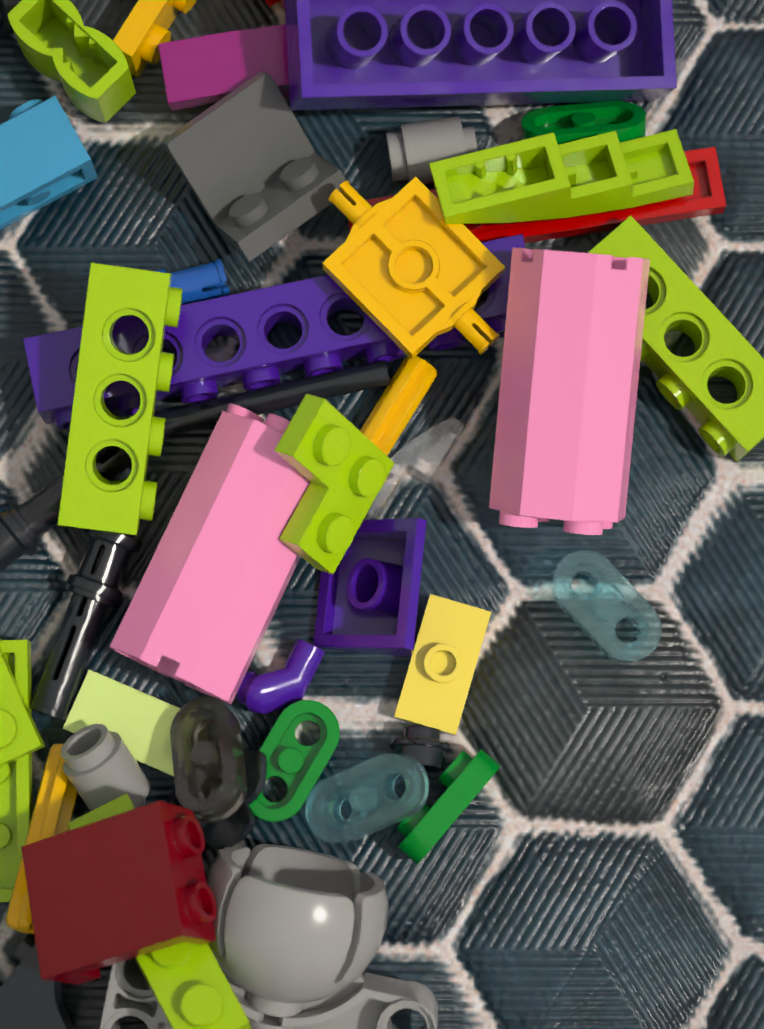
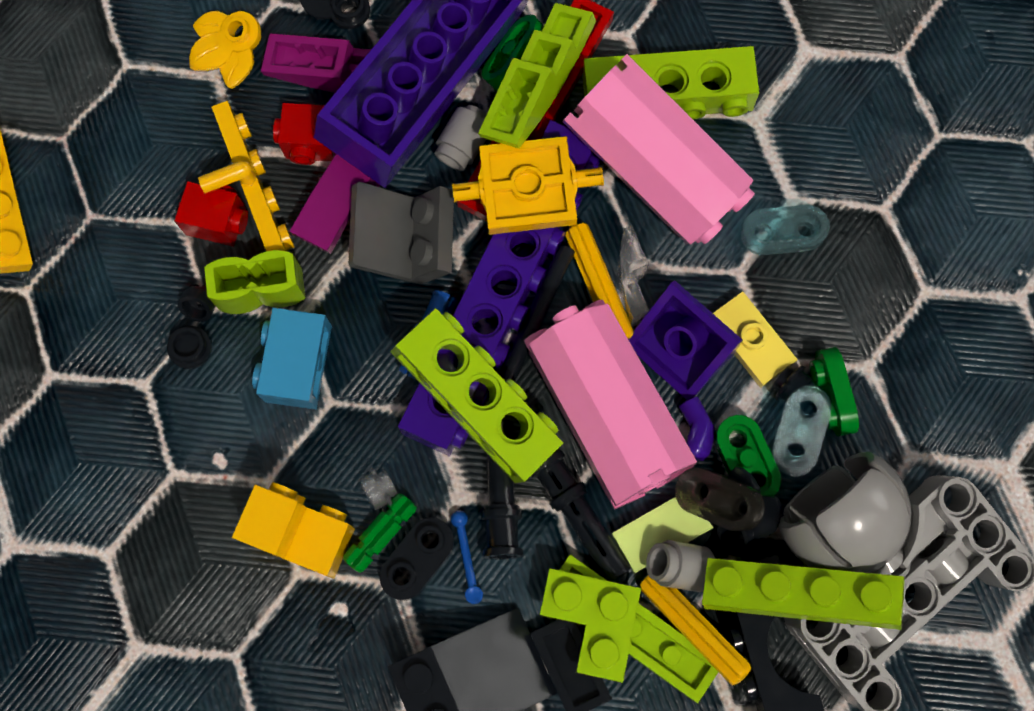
camera: 45 degrees left, 5 degrees down
(118, 891) = (769, 599): dark red panel -> none
(344, 480) = (617, 303): lime plate -> none

